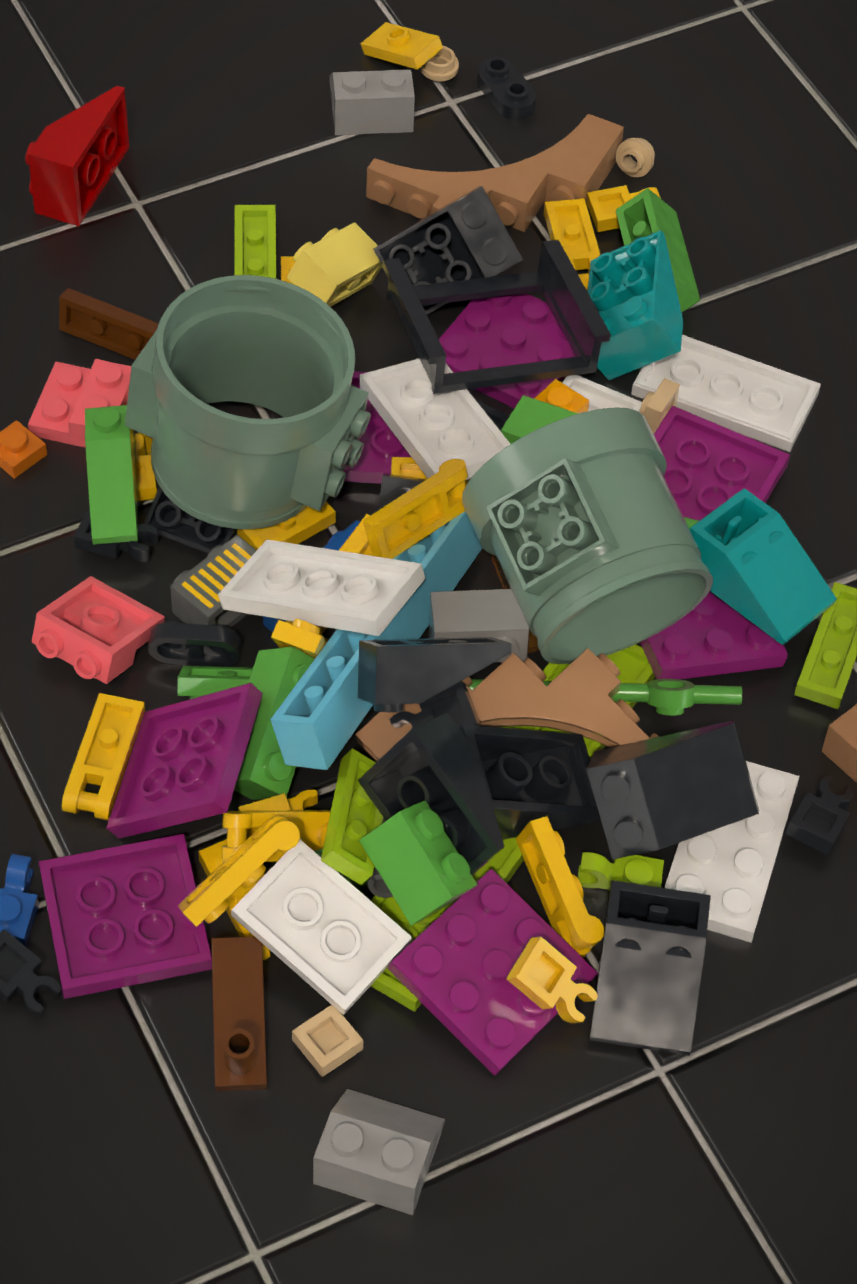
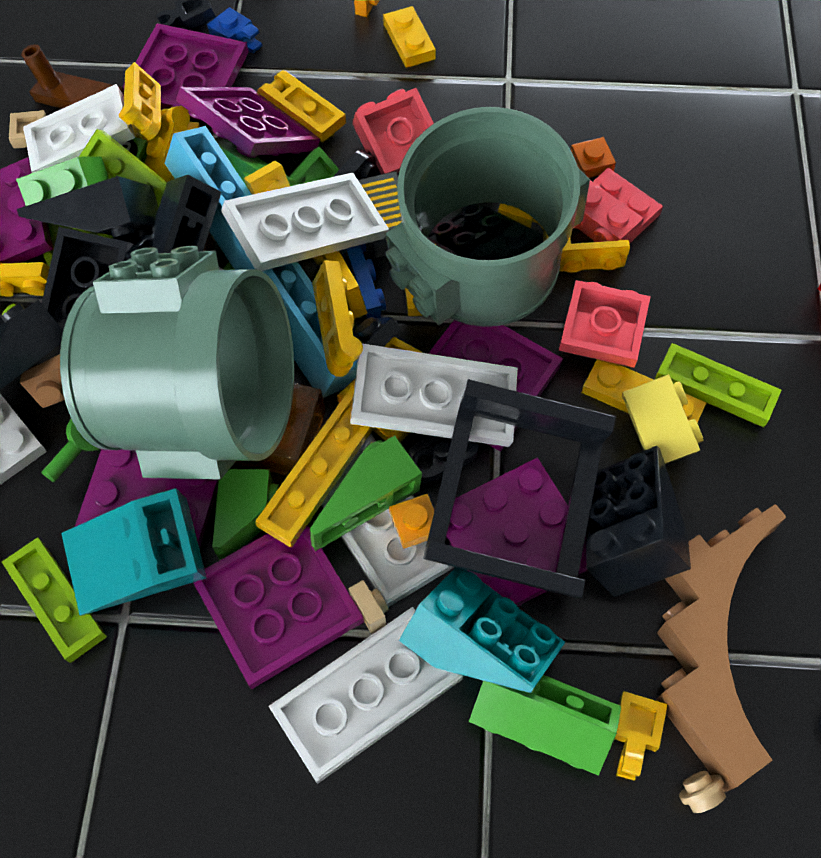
camera: 125 degrees right, 10 degrees up
(104, 324) = (648, 268): reddish brown piece -> none
(572, 226) = (611, 657): yellow plate -> none

